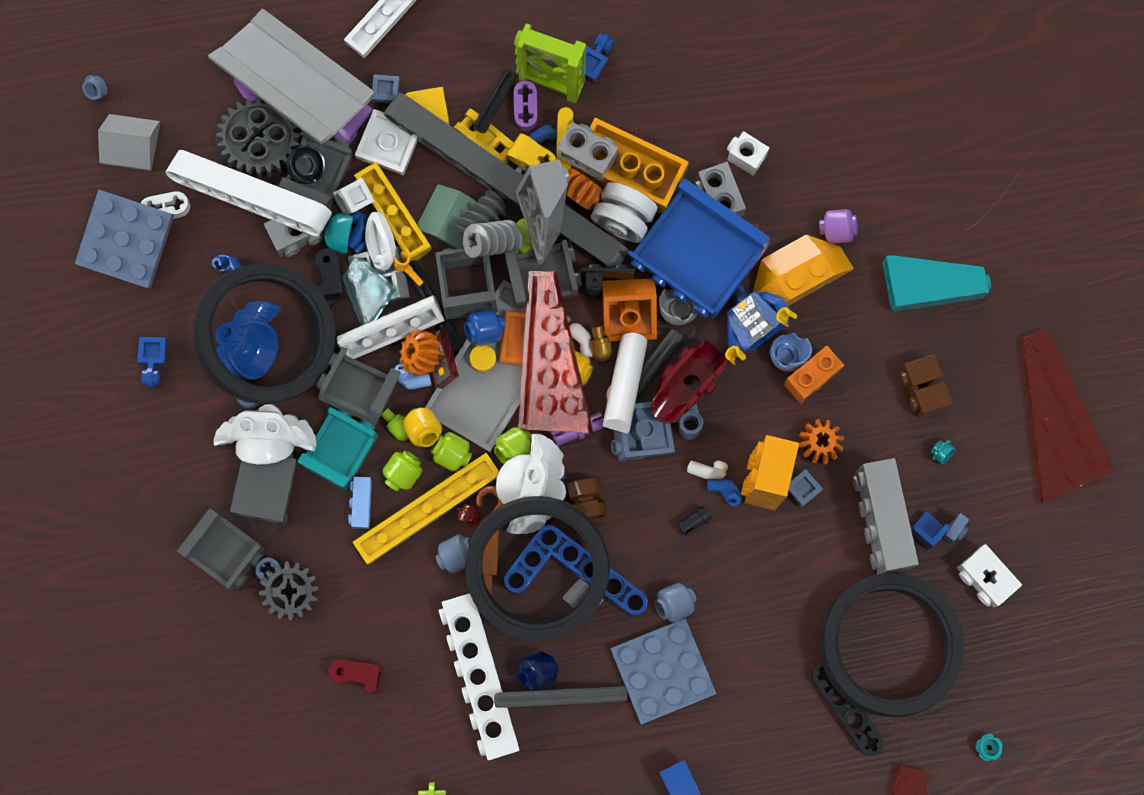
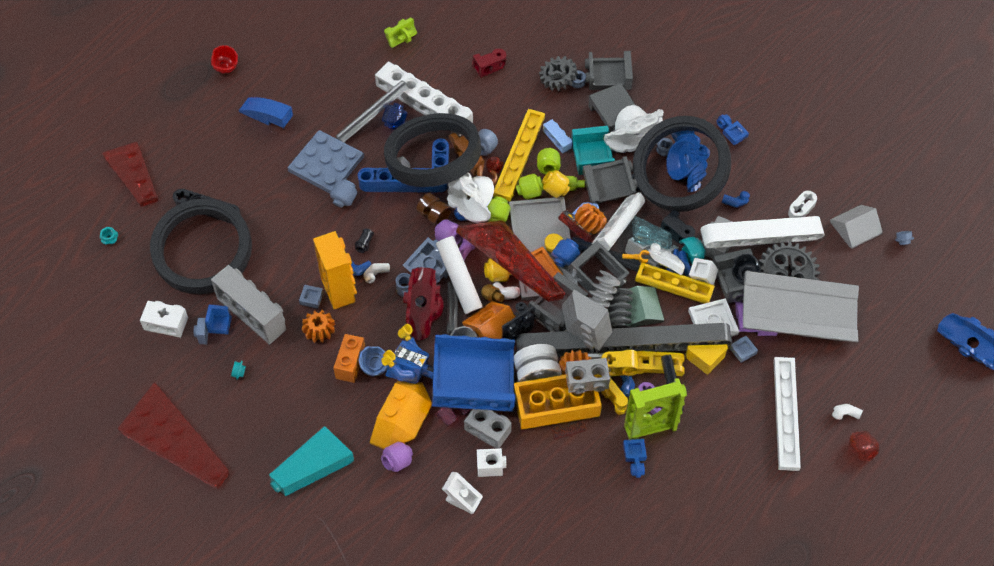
camera: 145 degrees right, 20 degrees down
(124, 239) = (806, 174): sand blue plate -> none
(592, 457) = (447, 229): none -> medium lavender head
(800, 141) = (461, 493): none -> white slope
(922, 373) = (270, 395): reddish brown piece -> none

